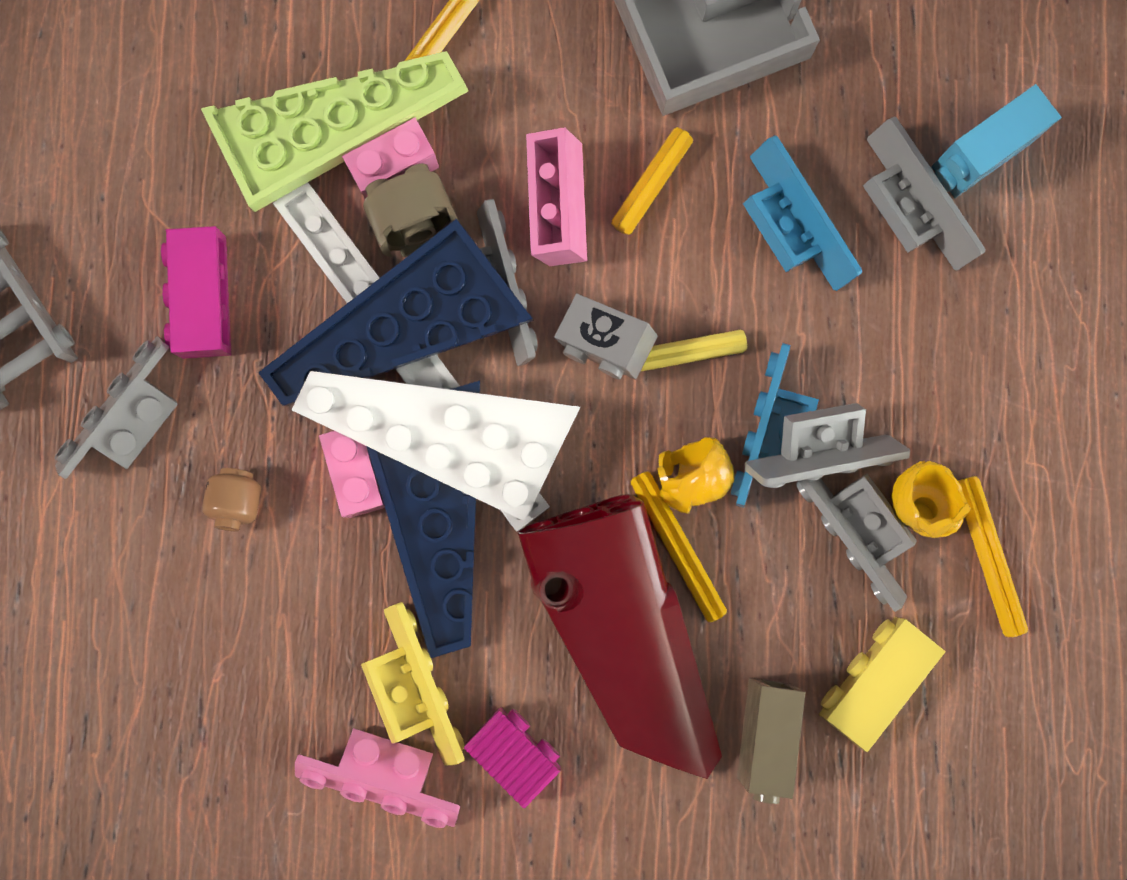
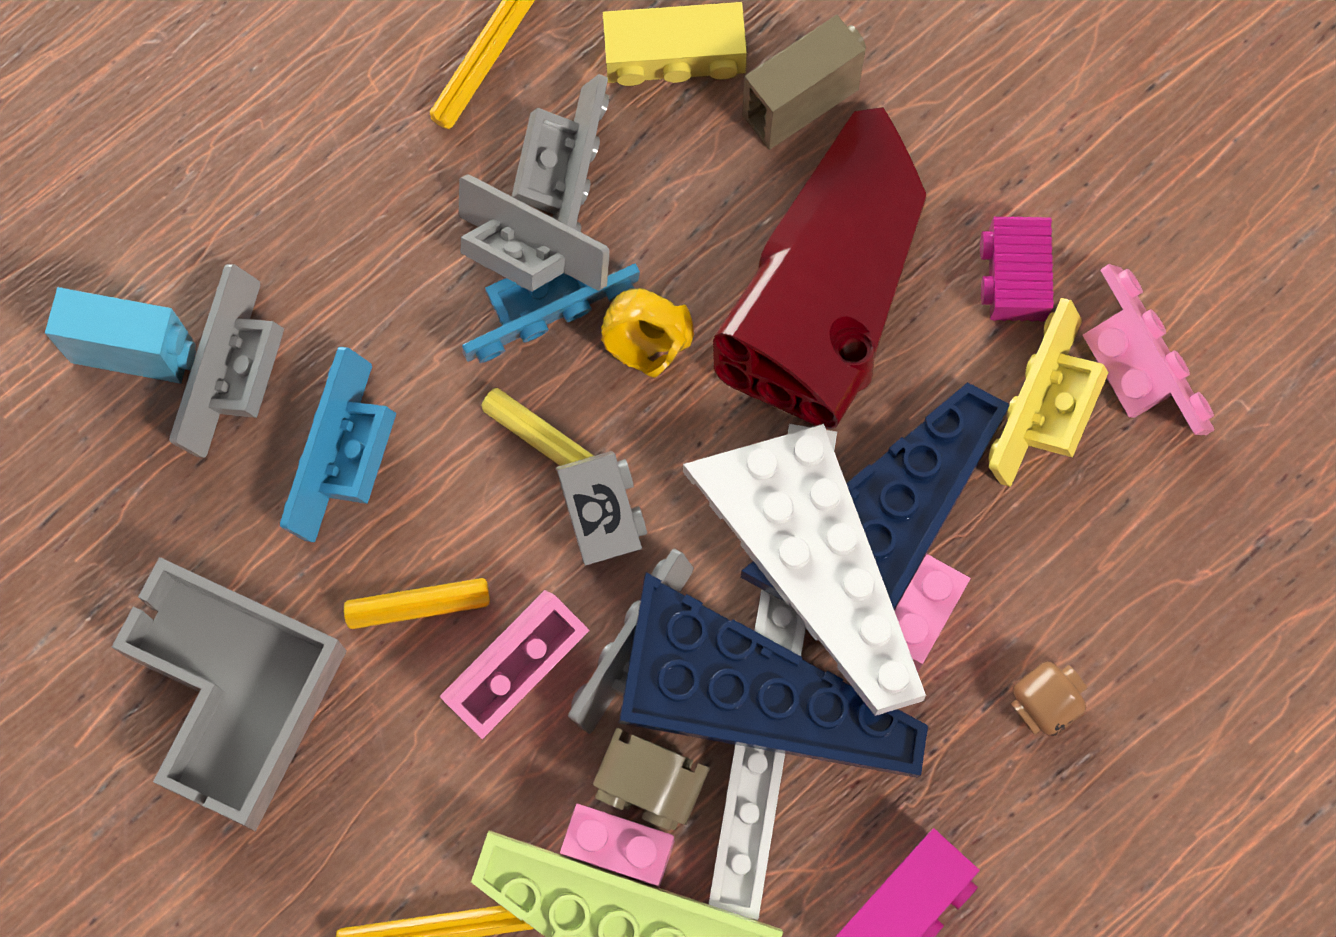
camera: 130 degrees left, 10 degrees down
(126, 418) = (1073, 869): light grey bracket -> none
(679, 547) = (718, 295): yellow axle -> none
(929, 500) = (488, 129): yellow hair -> none

